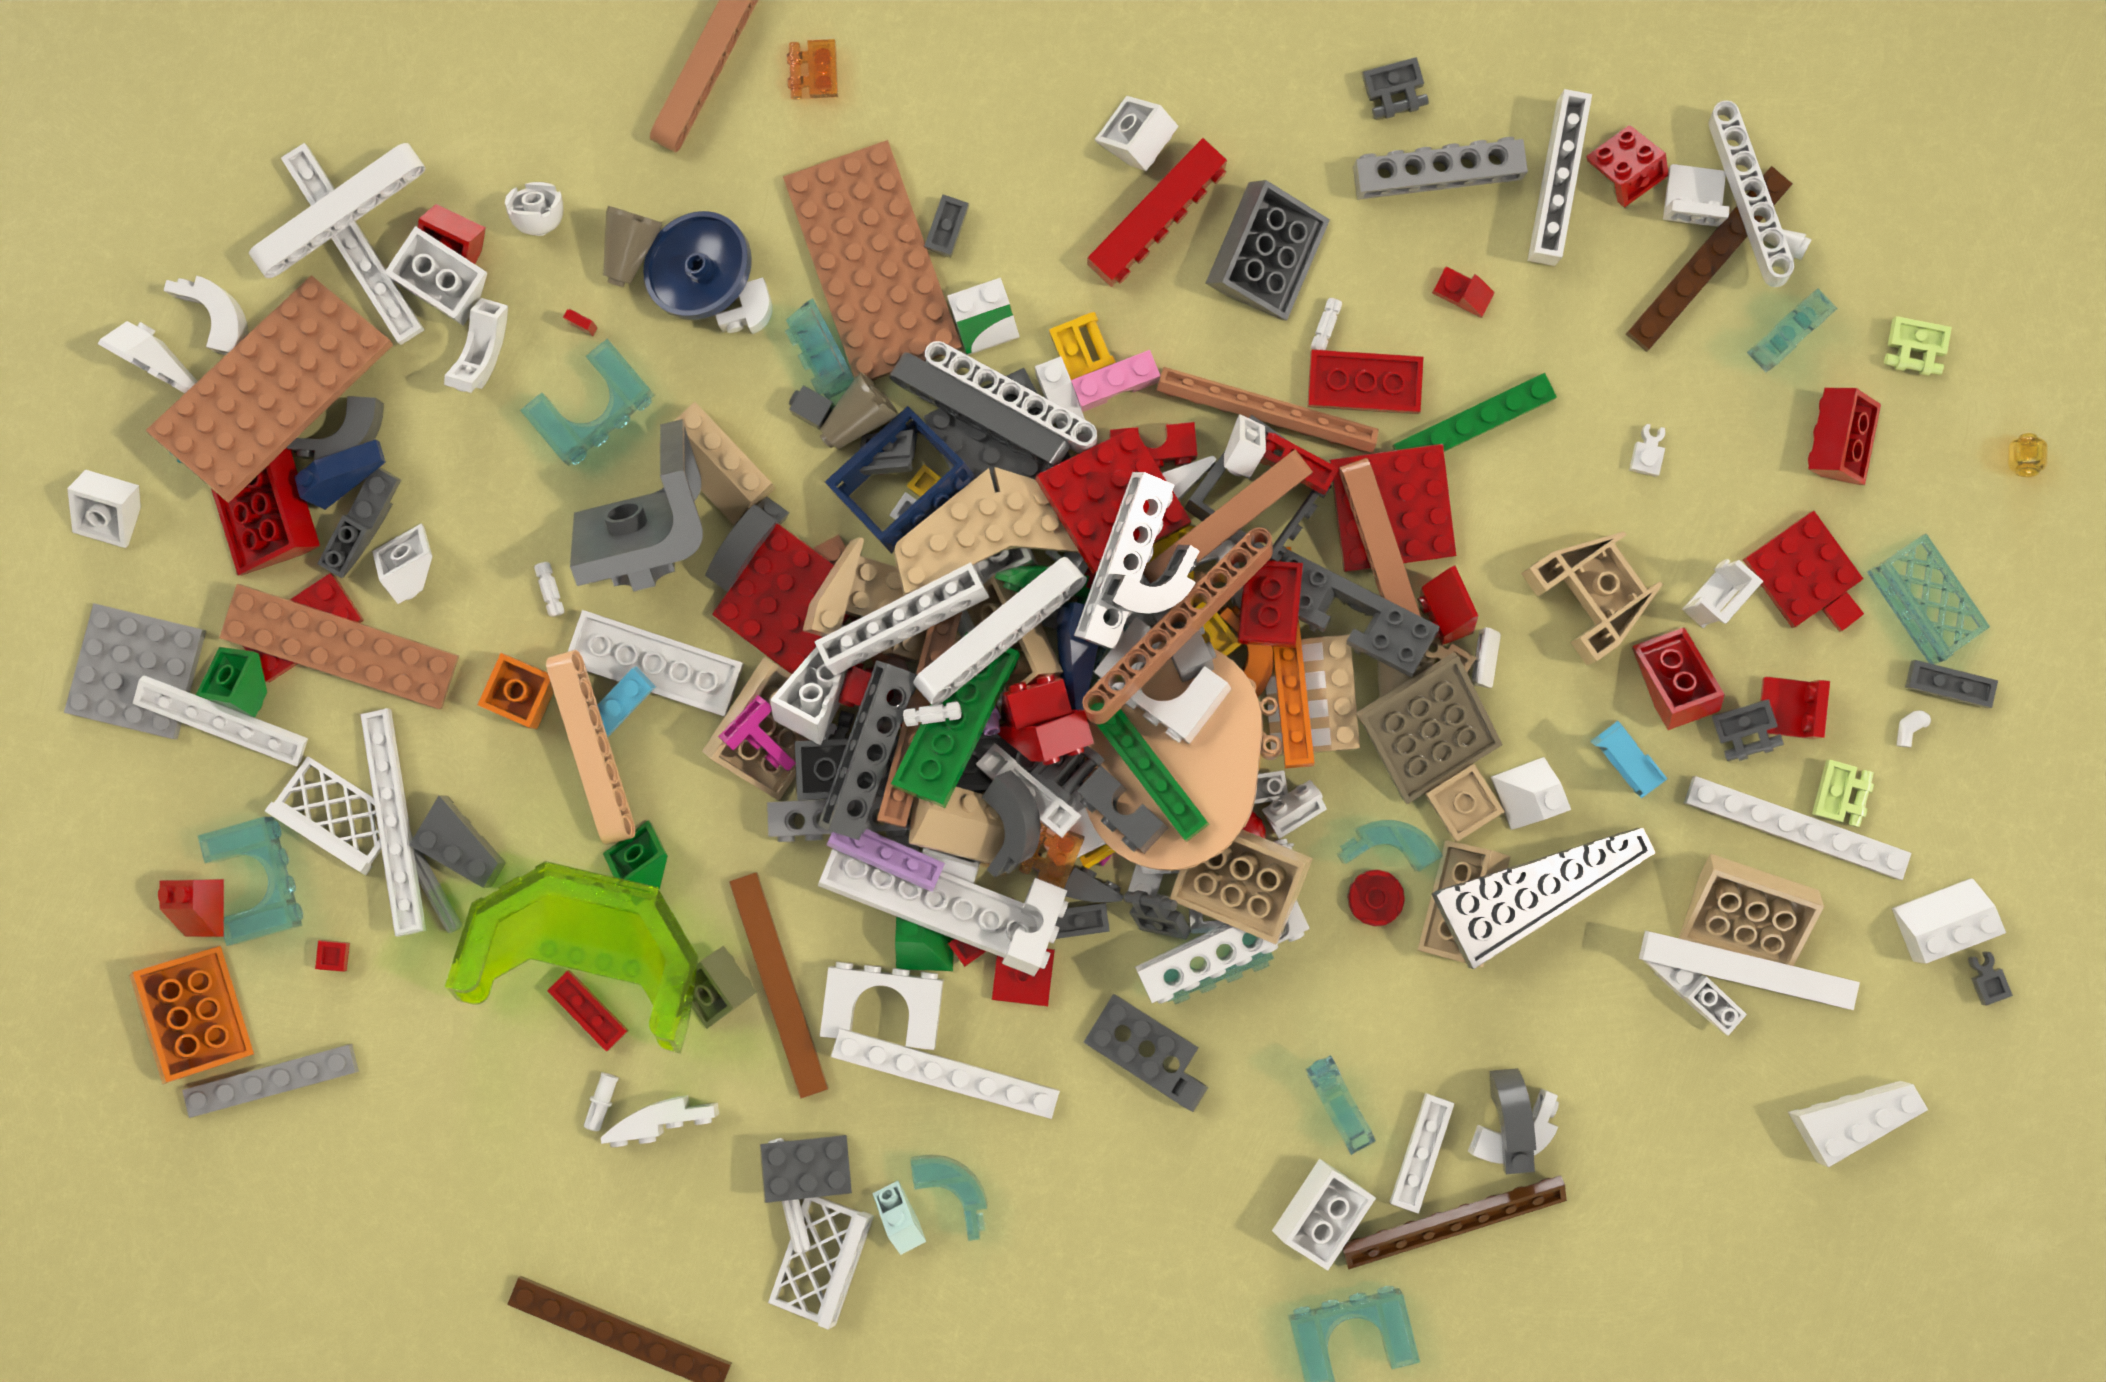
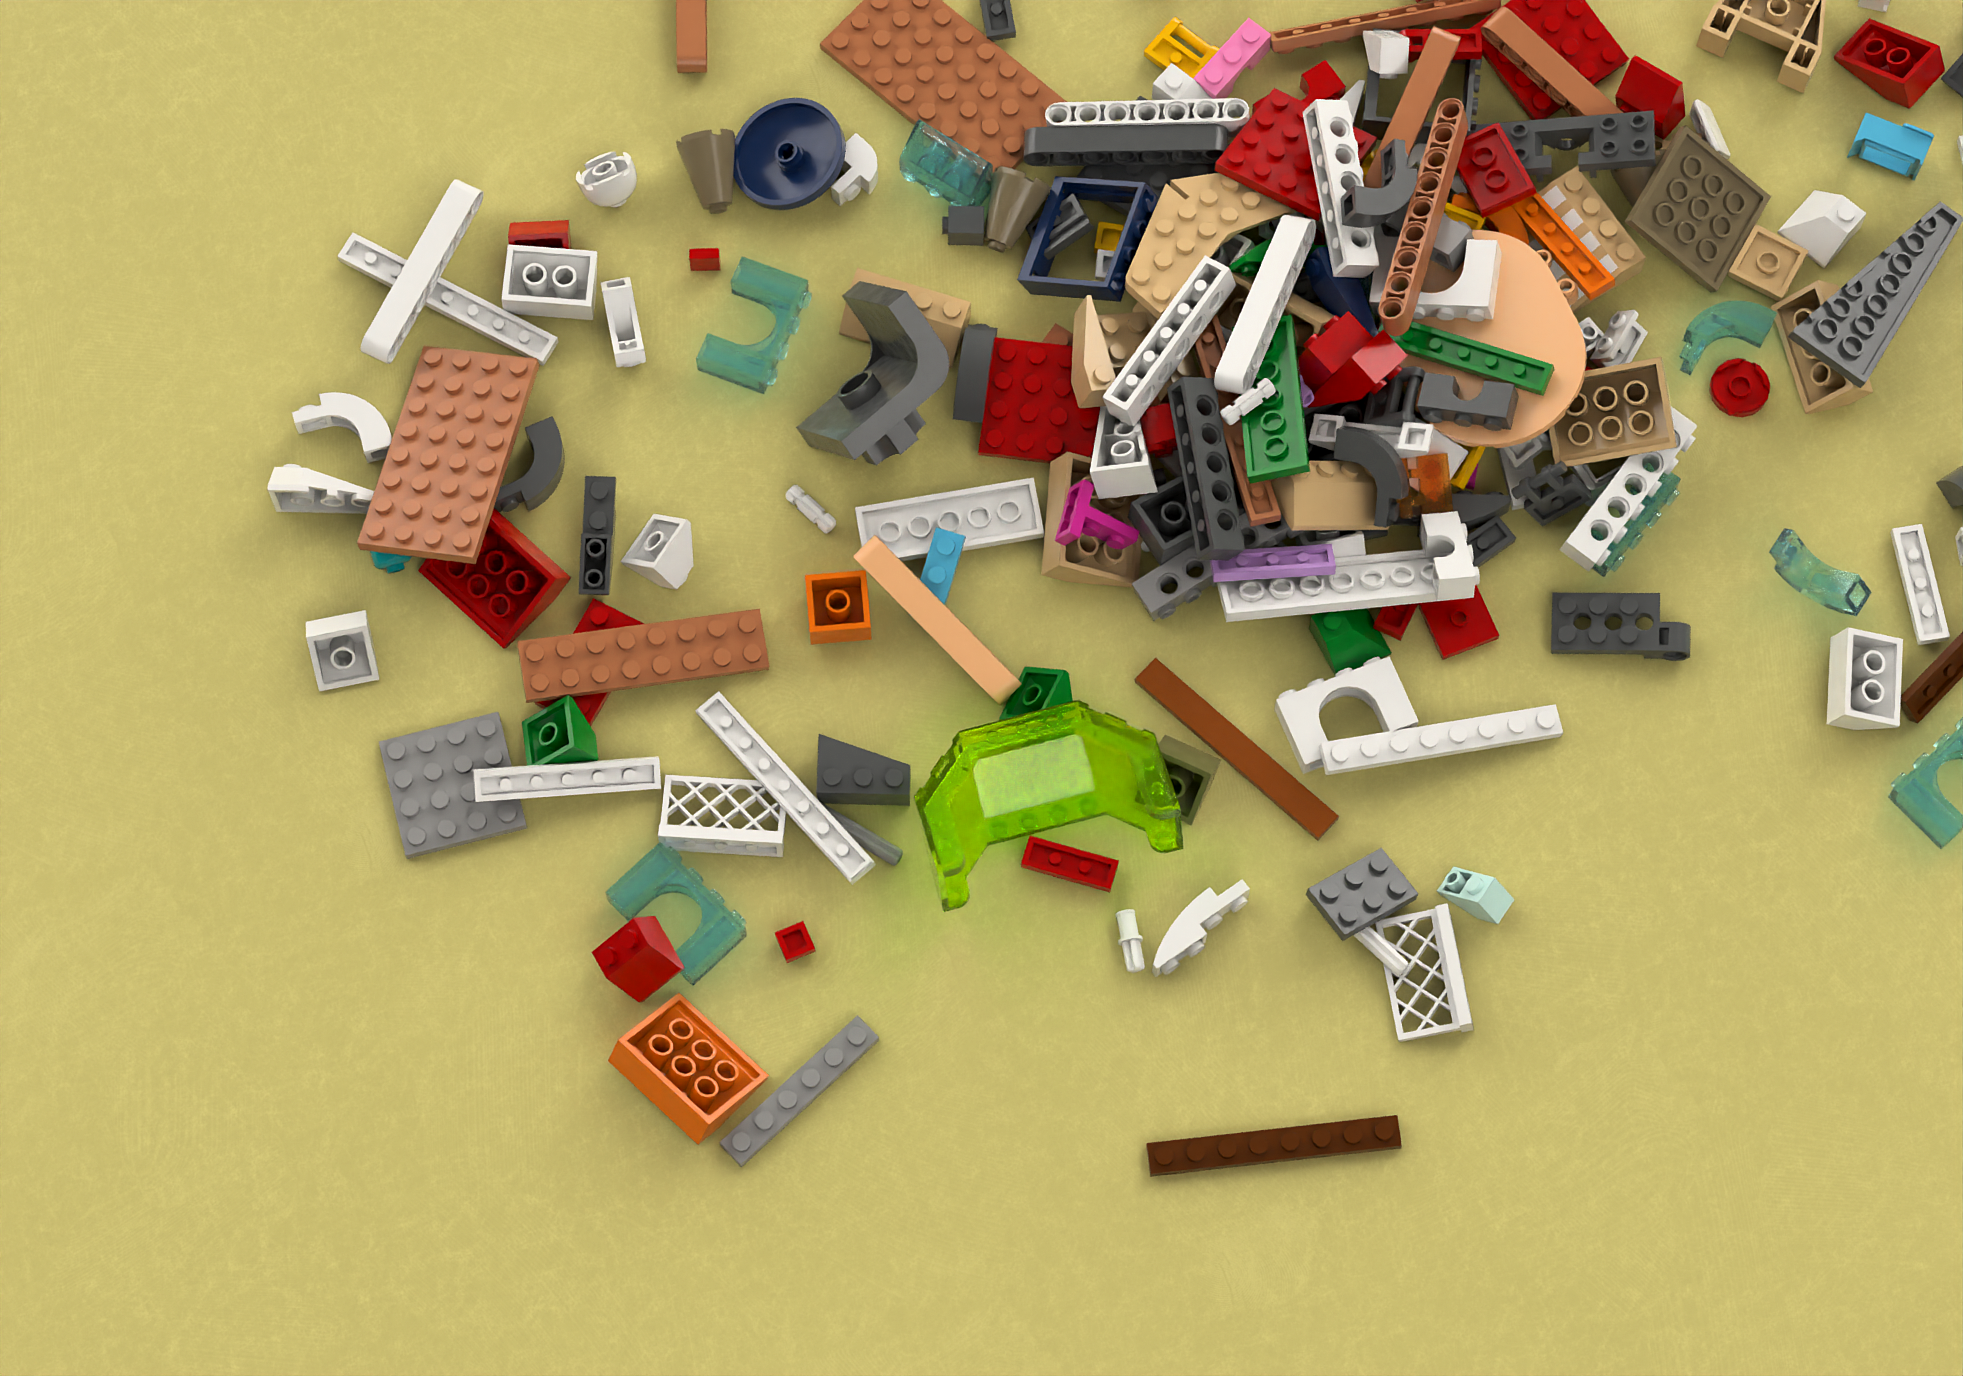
camera: 30 degrees left, 15 degrees down
(336, 474) = (555, 500): dark blue slope -> none
(959, 1179) = (1510, 831): clear light blue arch -> none
(983, 316) = (1076, 67): white slope -> none

